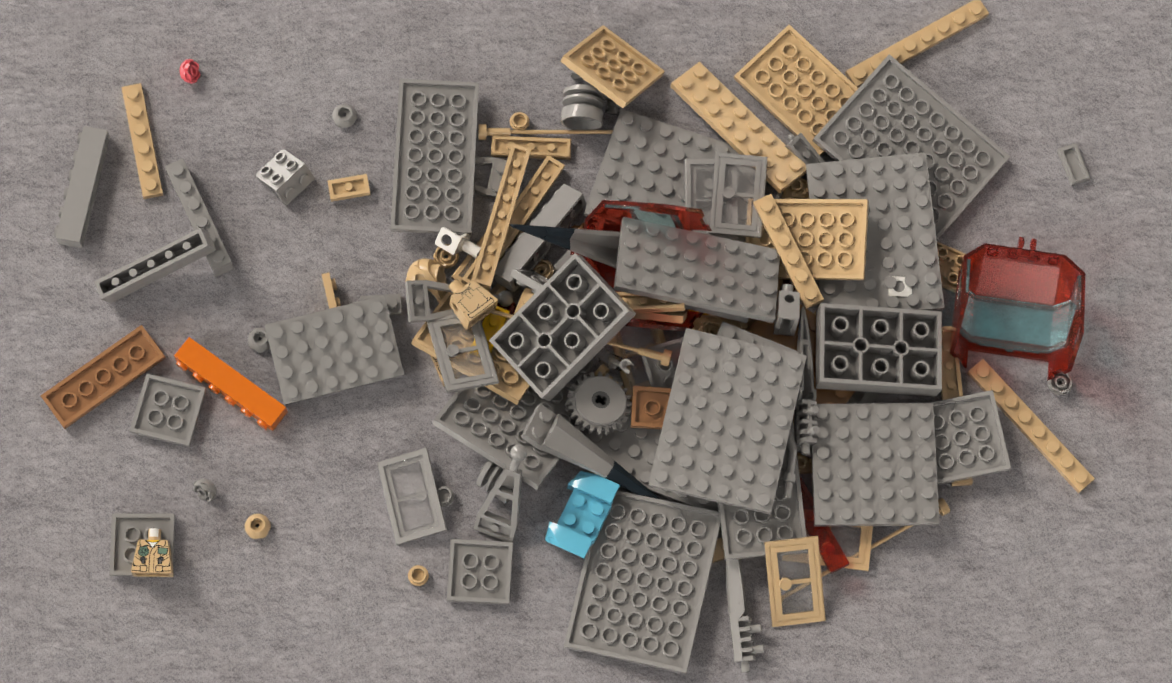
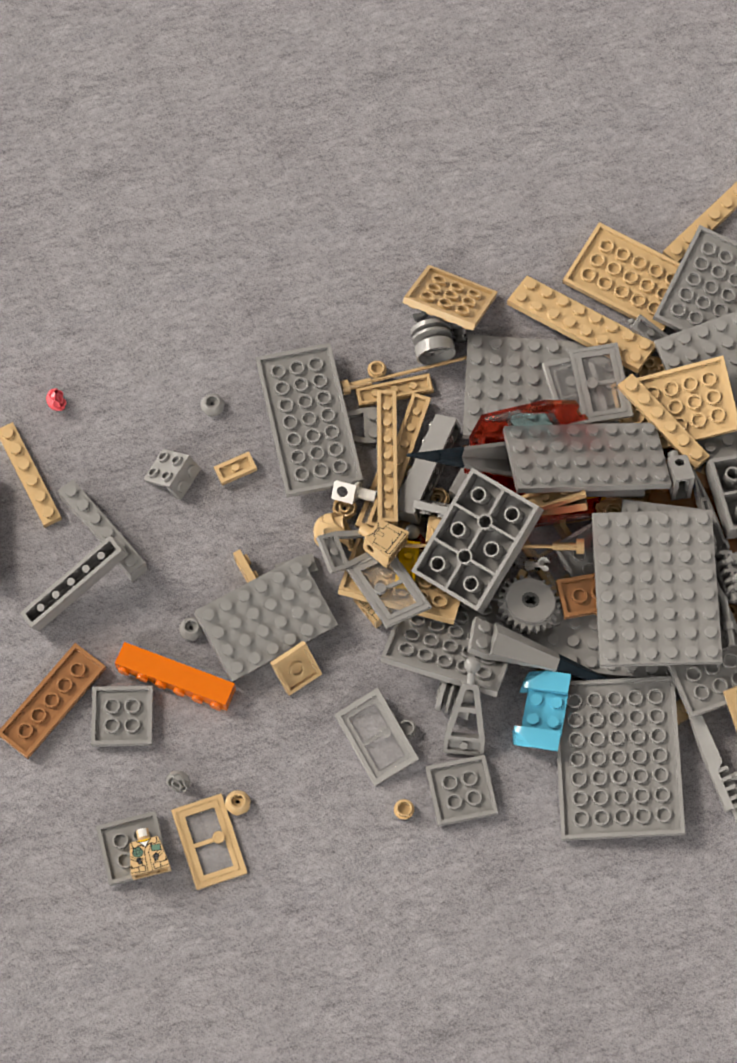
camera: 10 degrees left, 5 degrees down
(219, 557) = (209, 841): none -> tan door
(351, 407) = (296, 668): none -> tan plate

